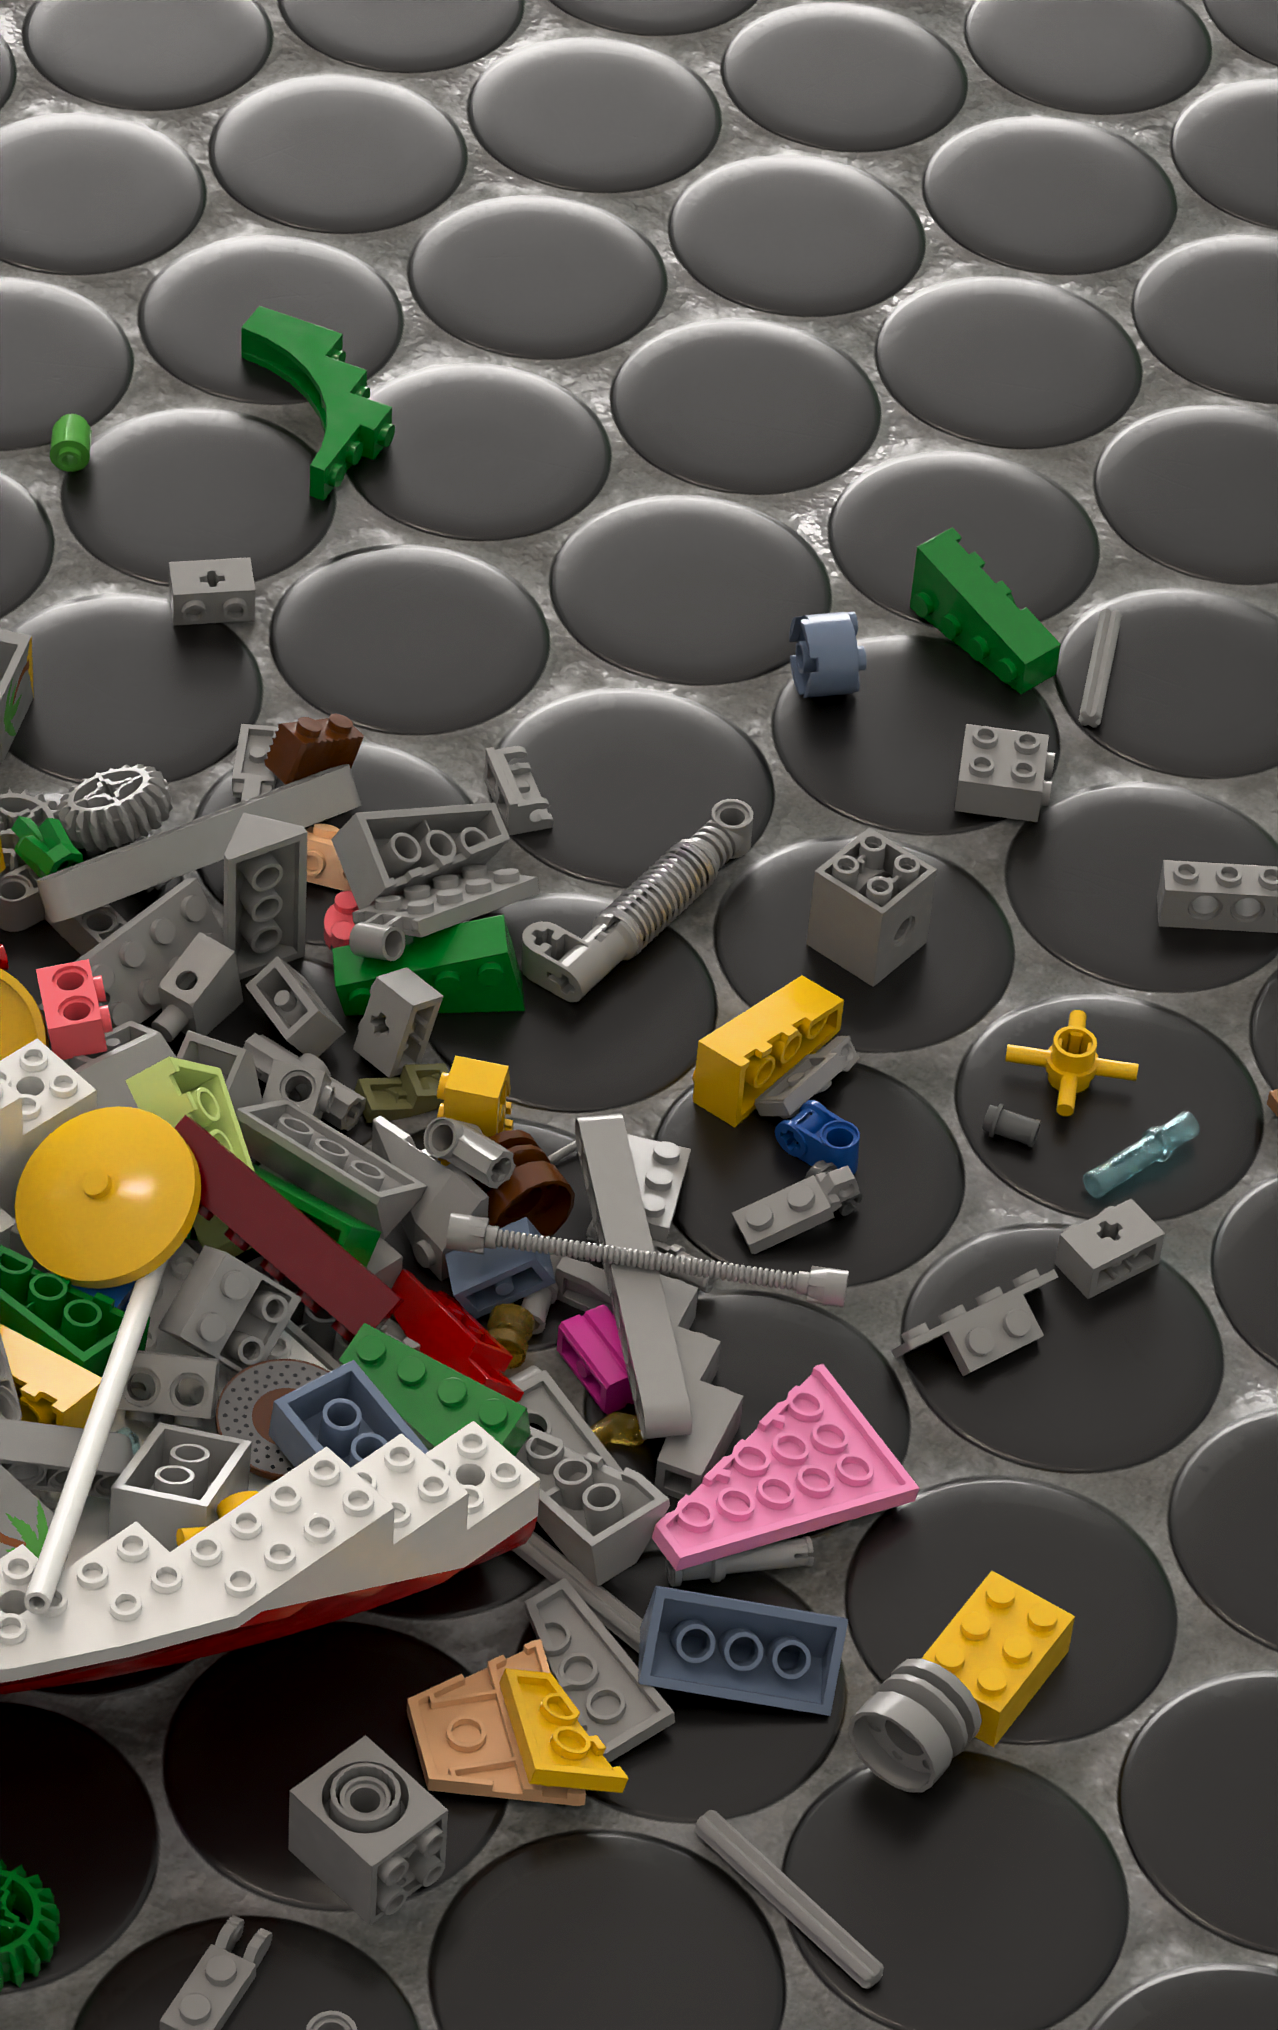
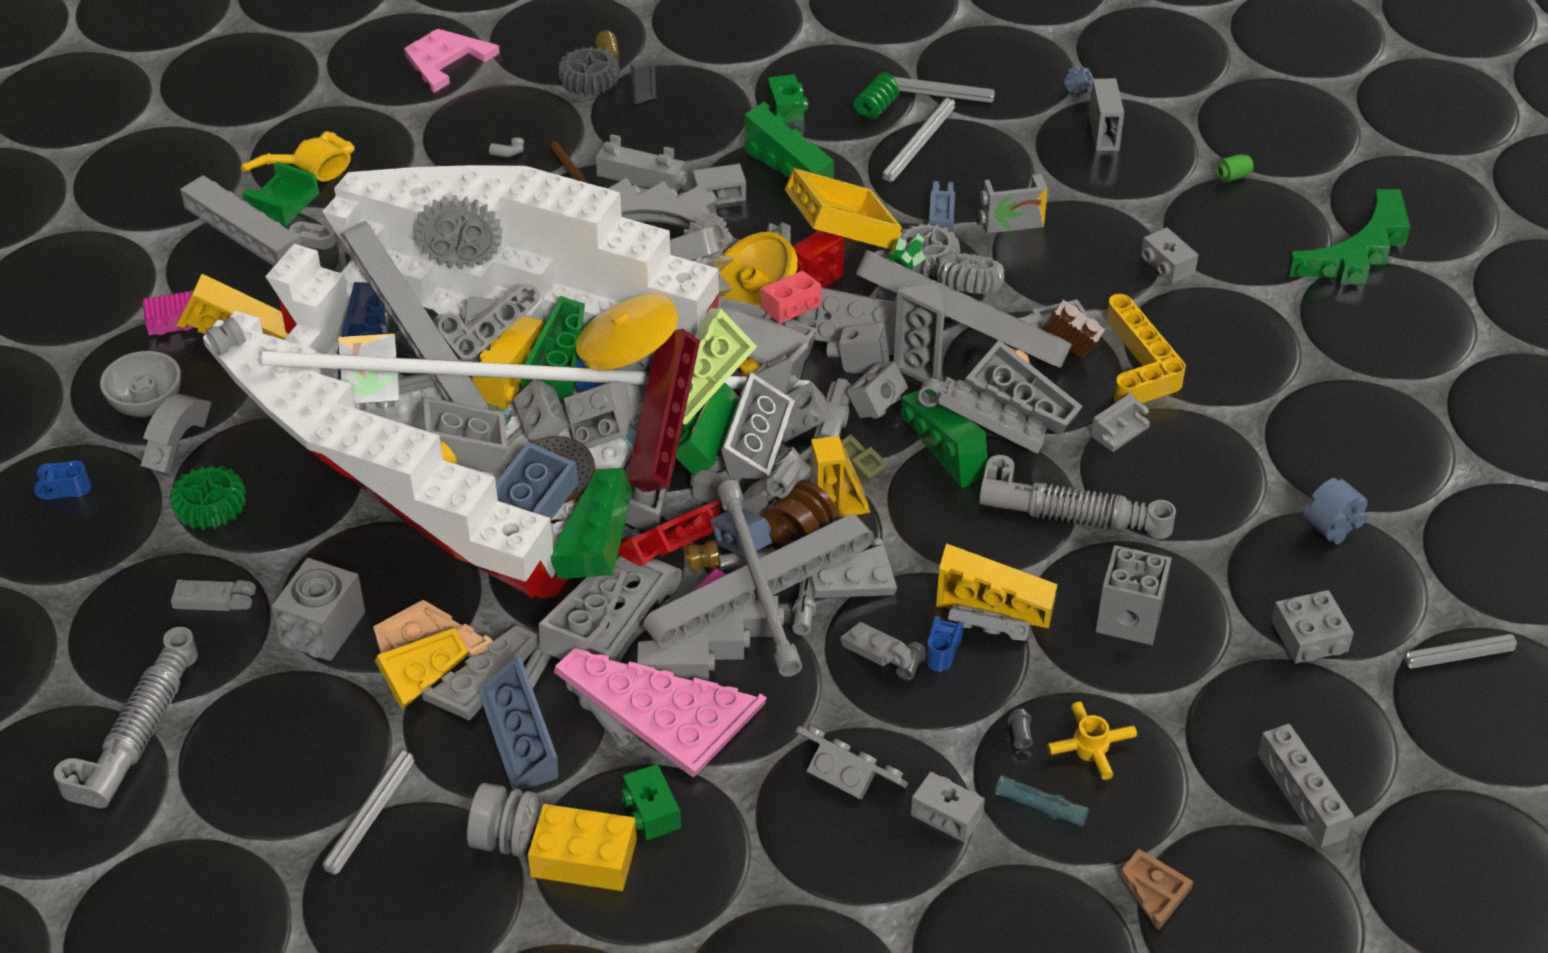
camera: 70 degrees right, 0 degrees up
(390, 697) = (1161, 366): none -> yellow beam
(397, 1021) = (890, 427): light grey brick -> none
(944, 1555) = (651, 802): none -> green brick
(980, 614) = (1441, 571): green wedge -> none

